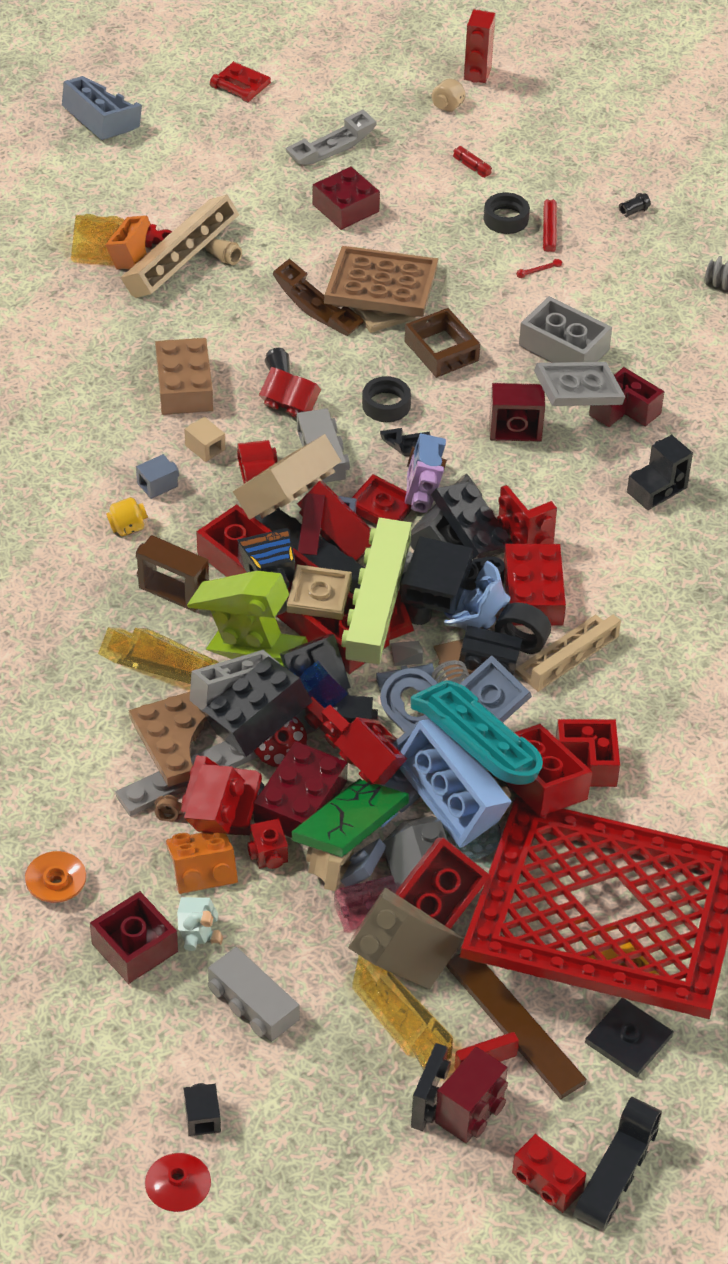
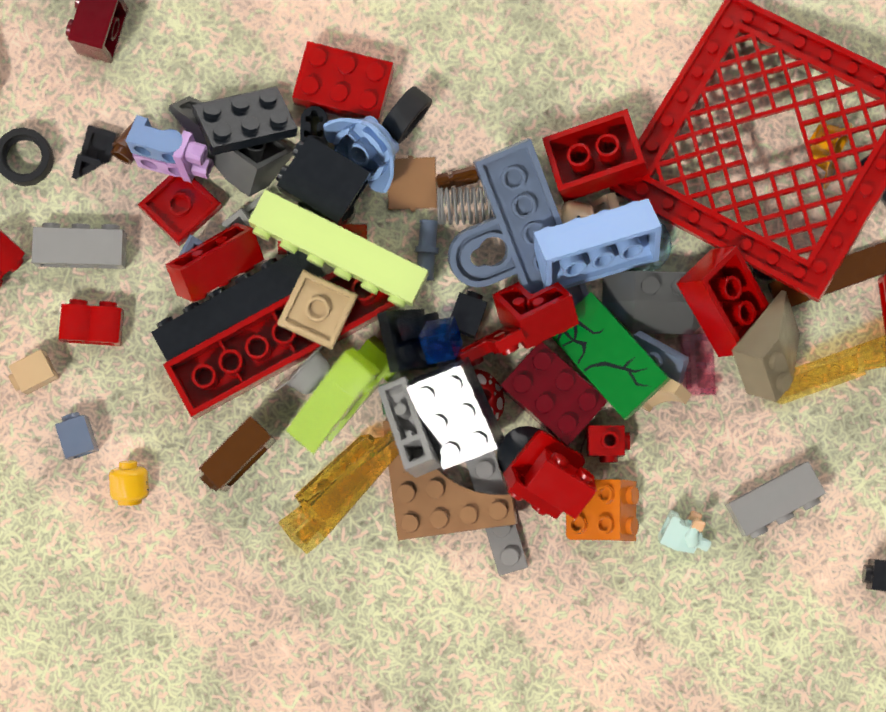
camera: 75 degrees left, 35 degrees up
(55, 866) = (609, 657): orange dish -> none
(134, 937) = (690, 597): dark red brick -> none
(162, 806) = (532, 528): medium nougat plate -> none
(268, 553) = (266, 350): black torso -> none
(288, 478) = (150, 301): tan piece -> none
(311, 524) = (222, 293): dark red sticker -> none
(407, 653) = (391, 237): light grey slope -> none
(479, 732) = (564, 205): teal piece -> none
(483, 643) = (421, 156): black brick -> none
(526, 525) = (267, 72): red bracket -> none
(571, 654) = (443, 72): tan fence -> none
(595, 745) = (576, 89): red brick -> none

